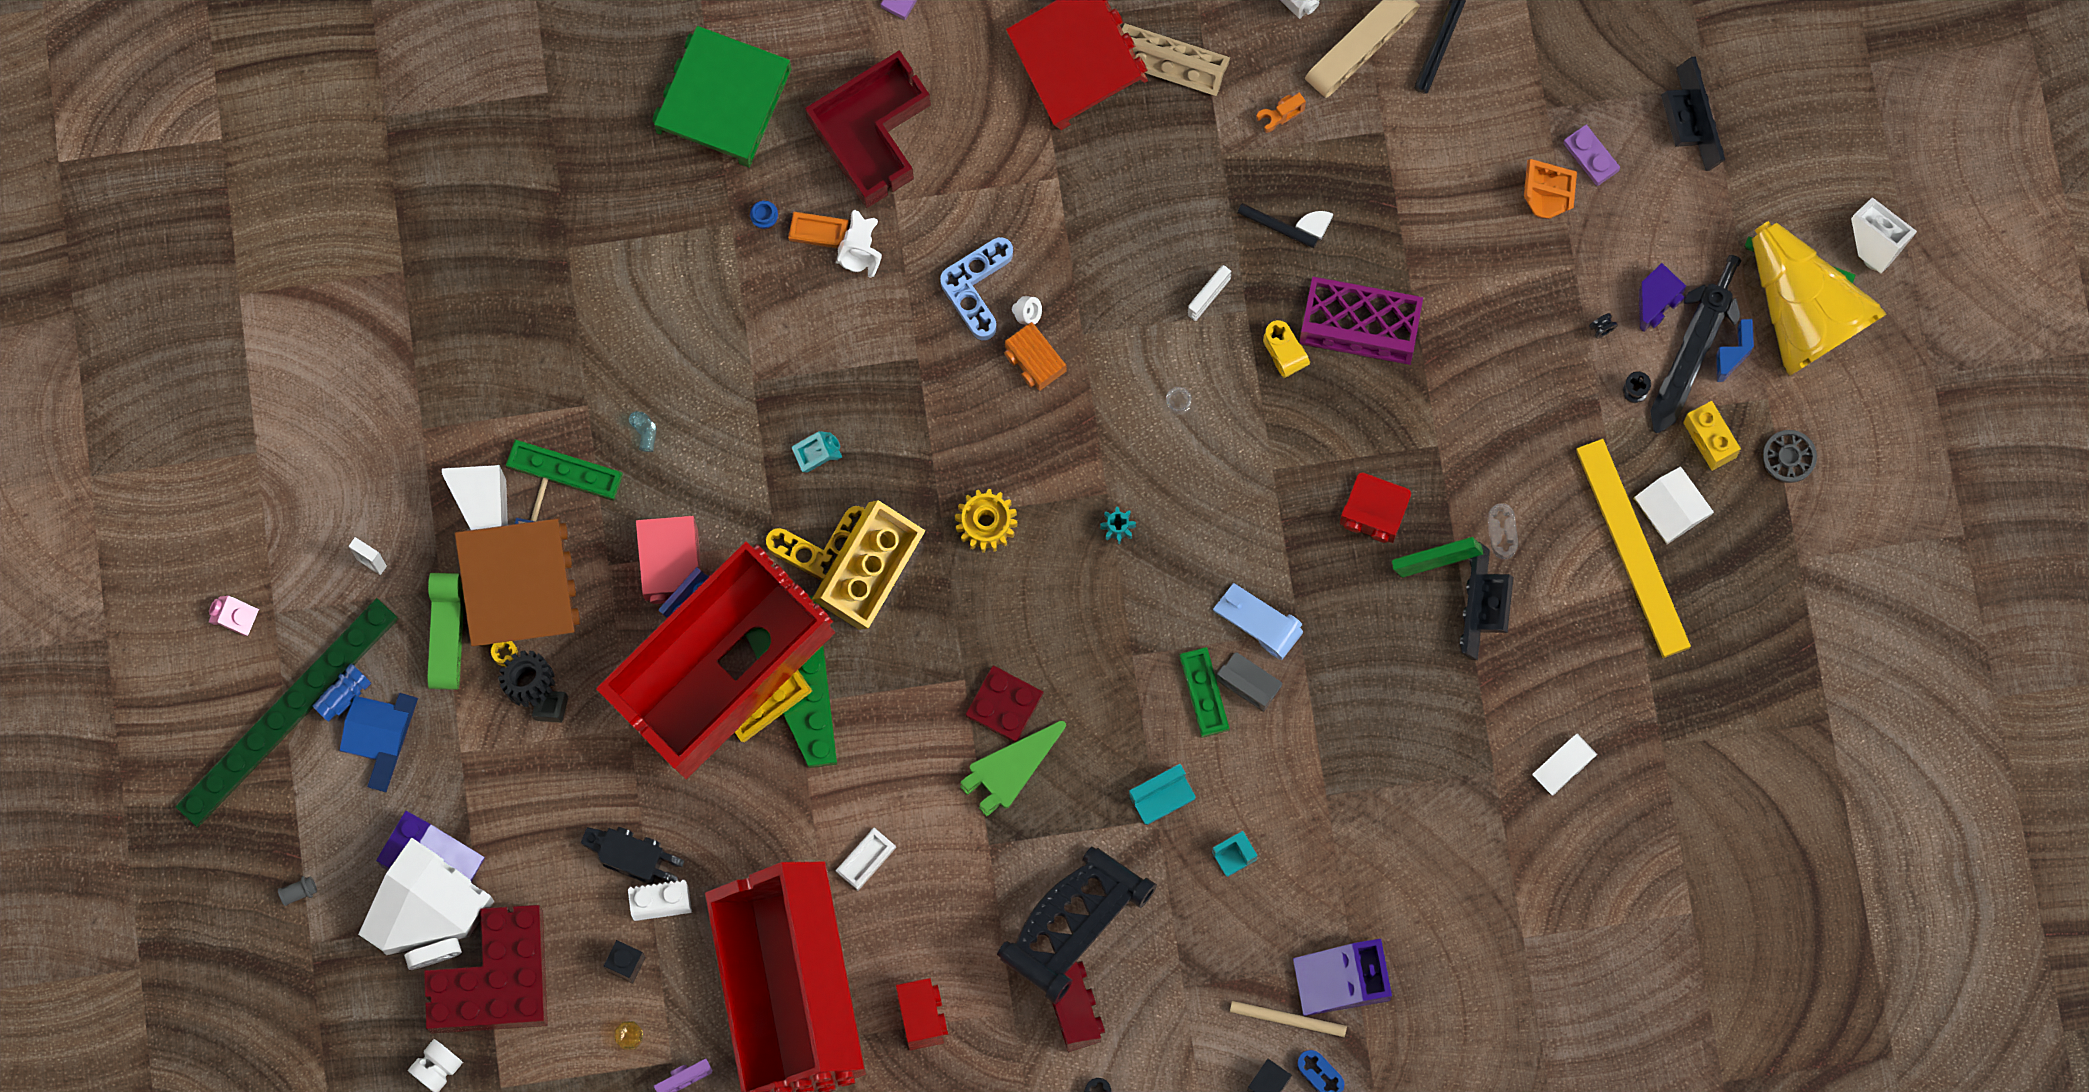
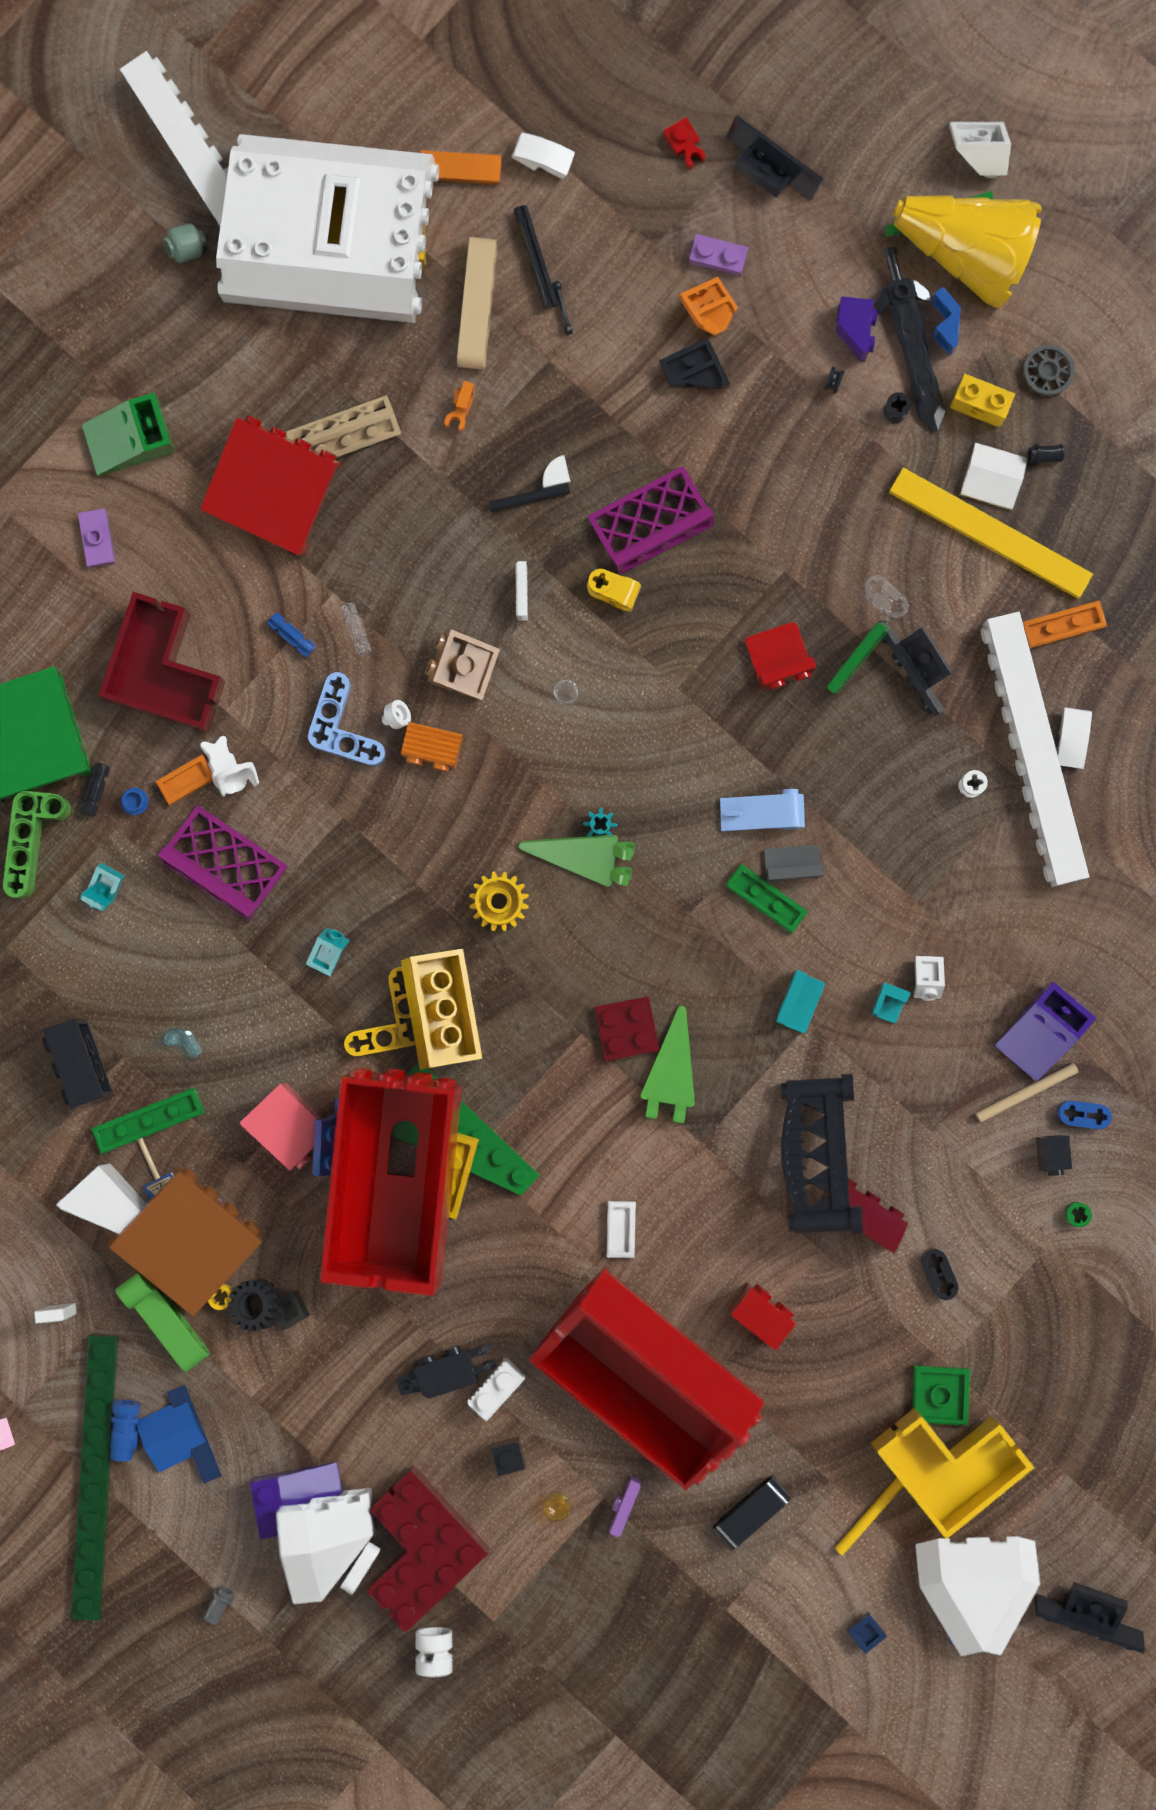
camera: 40 degrees left, 10 degrees up
(548, 378) = (77, 1063): none -> black brick
(655, 182) = (31, 844): none -> bright green beam
(682, 260) = (102, 887): none -> teal bracket
(741, 180) = (95, 789): none -> black axle
(768, 321) = (210, 883): none -> magenta fence
(996, 183) = (291, 635): none -> blue axle
(1051, 219) = (355, 629): none -> clear axle
(1086, 541) = (587, 856): none -> bright green flag
(1113, 312) = (462, 664): none -> plate
(1283, 860) = (929, 977): none -> white bracket
(1438, 79) = (557, 286): none -> black hinge
(1444, 727) = (977, 776): none -> white bush
(1497, 228) = (695, 367): none -> black wing
(1523, 749) = (1034, 749): none -> white brick
(1632, 668) = (1064, 624): none -> orange tile
(1638, 43) = (684, 140): none -> red plate
(1731, 520) = (1051, 453): none -> black pin

